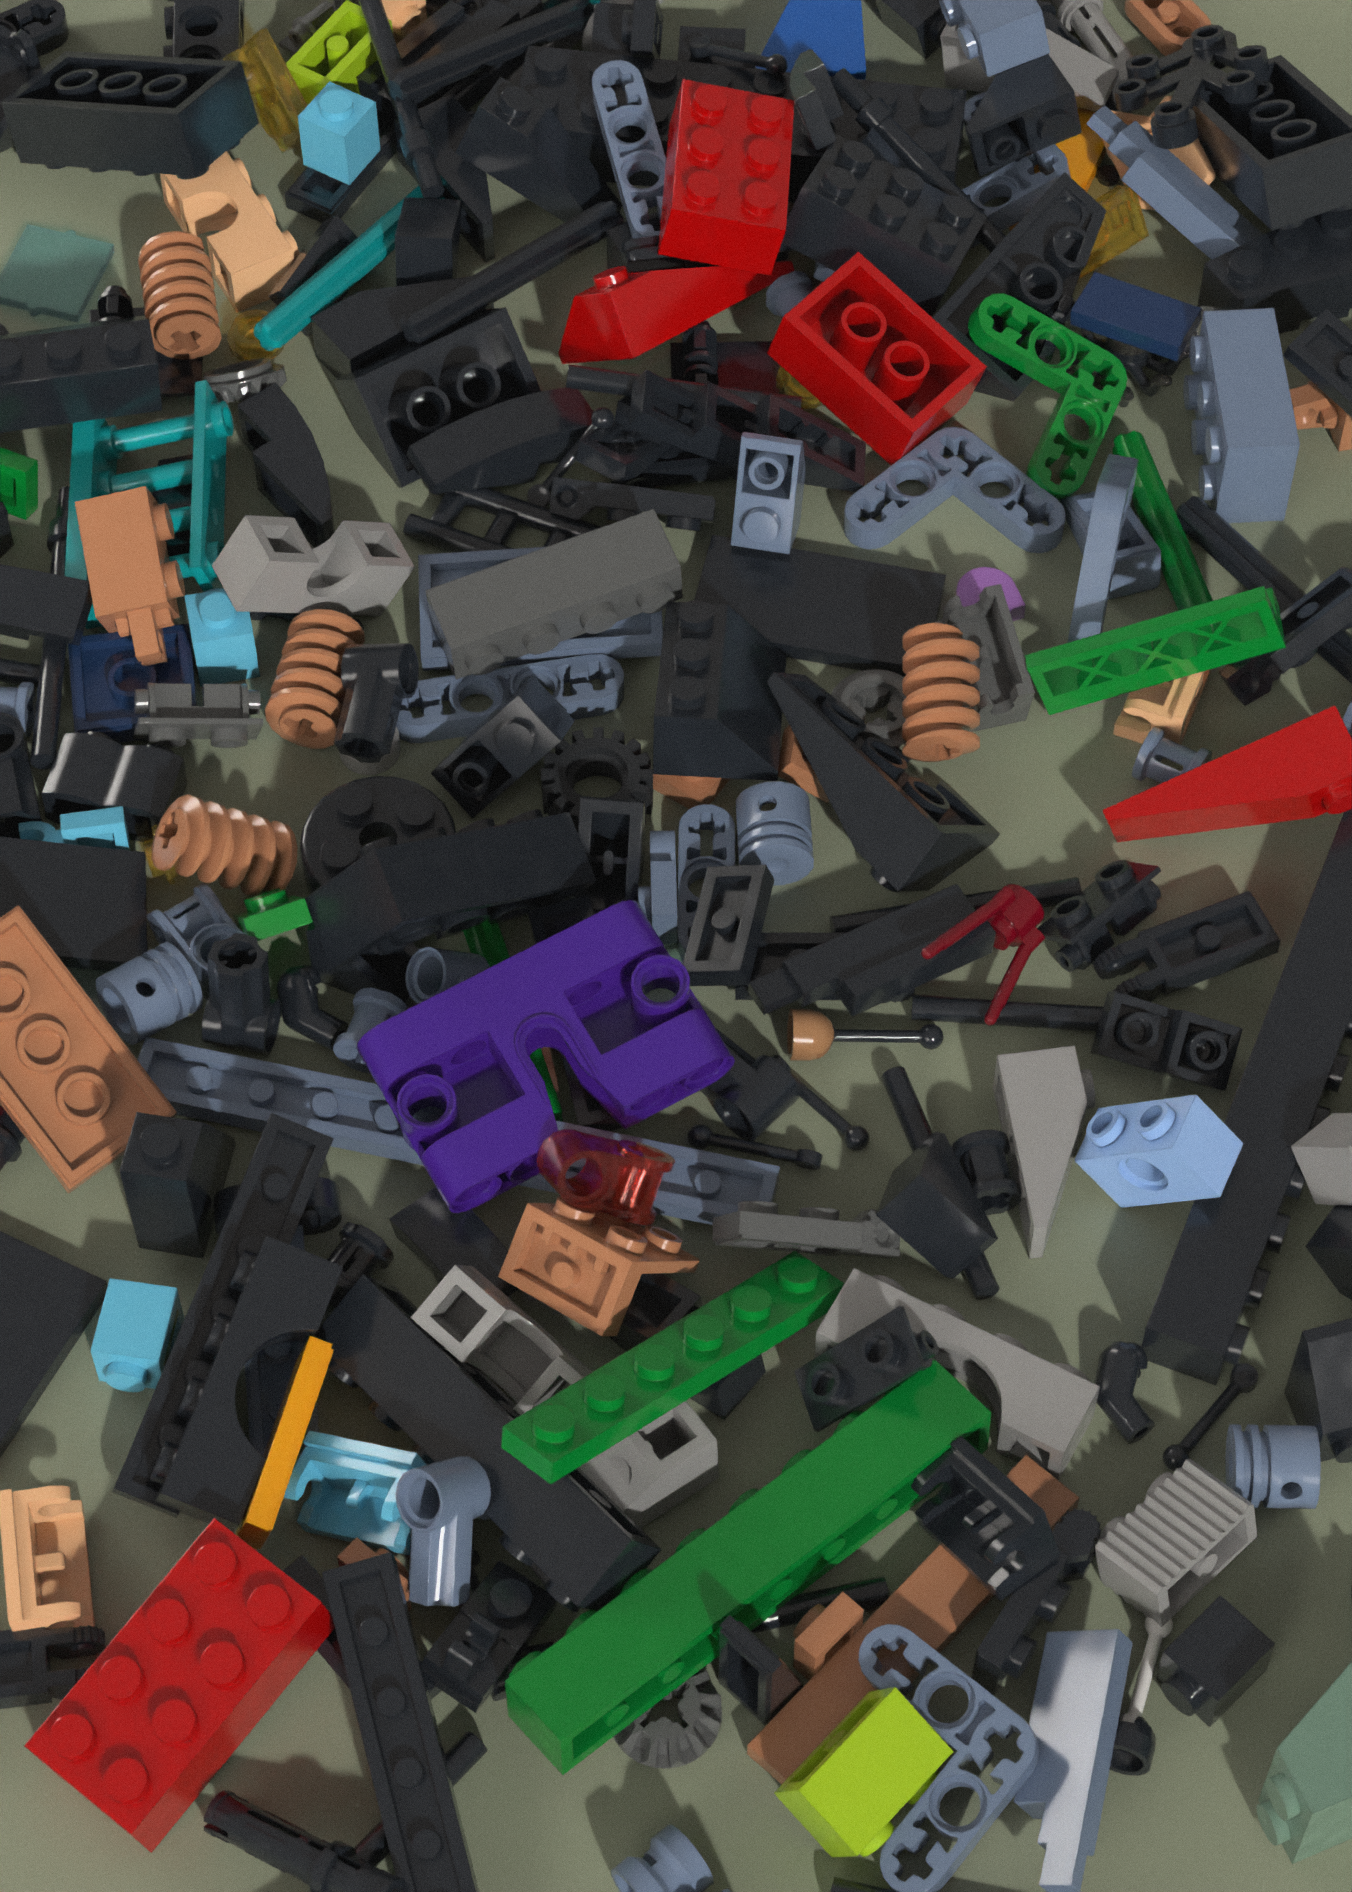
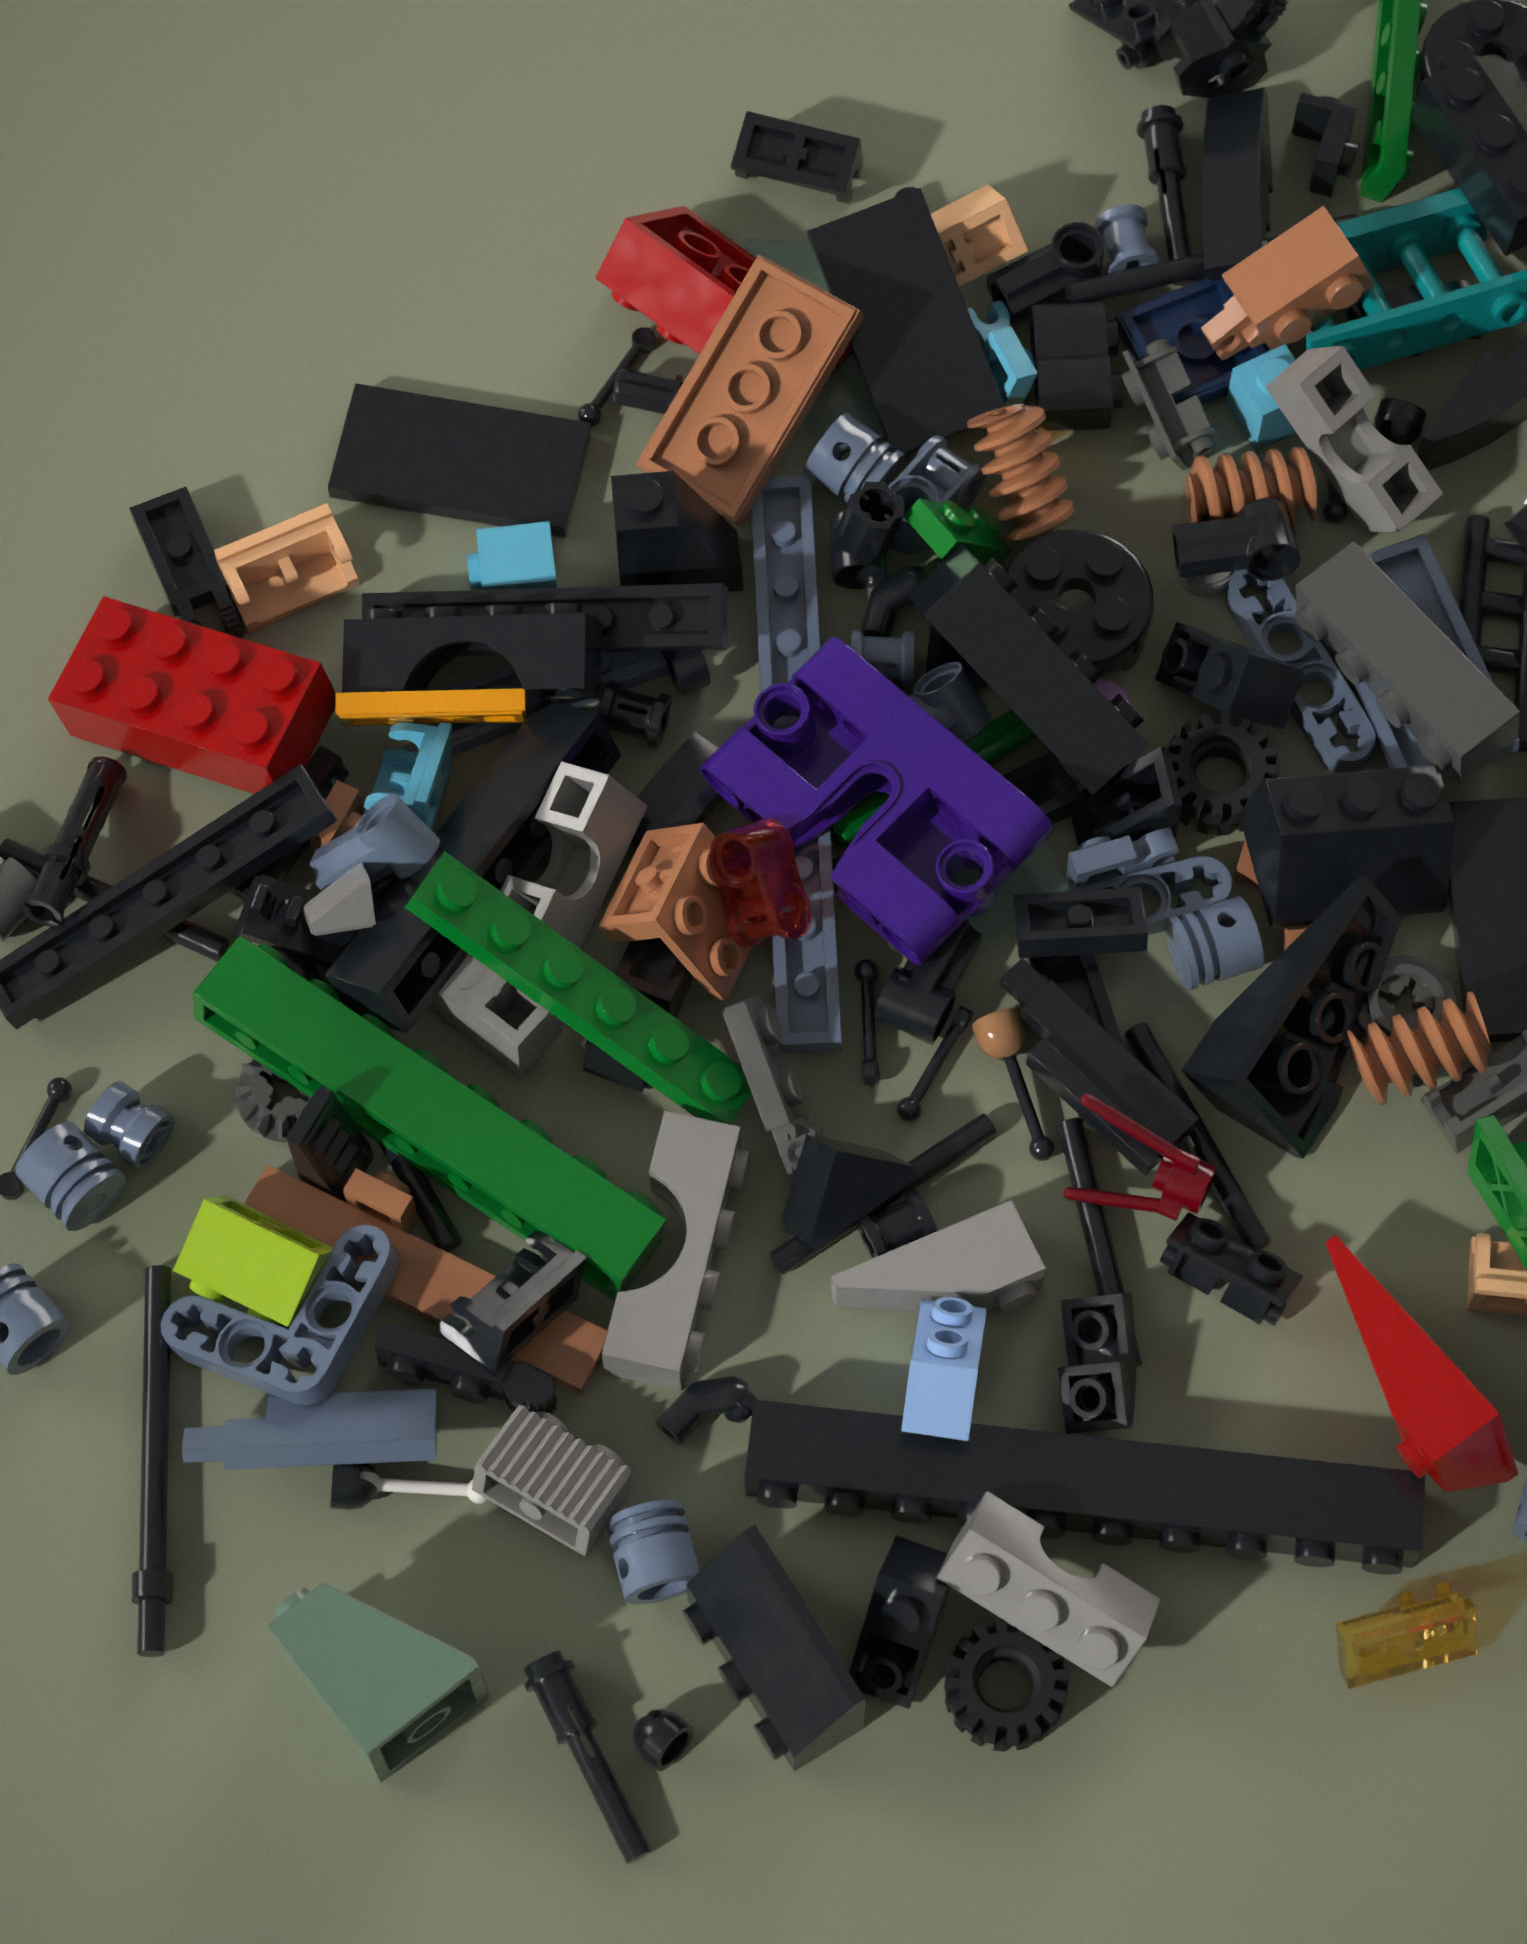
camera: 75 degrees right, 10 degrees up
(503, 1564) = (342, 905): none -> light grey slope
(863, 1367) = (638, 1162): black hinge -> none
(1158, 747) = (1438, 1296): sand blue bush -> none
(1191, 948) = (1218, 1367): black hinge -> none
(1213, 1662) = (443, 1539): black brick -> none
(1242, 1380) = (655, 1471): black hinge -> none

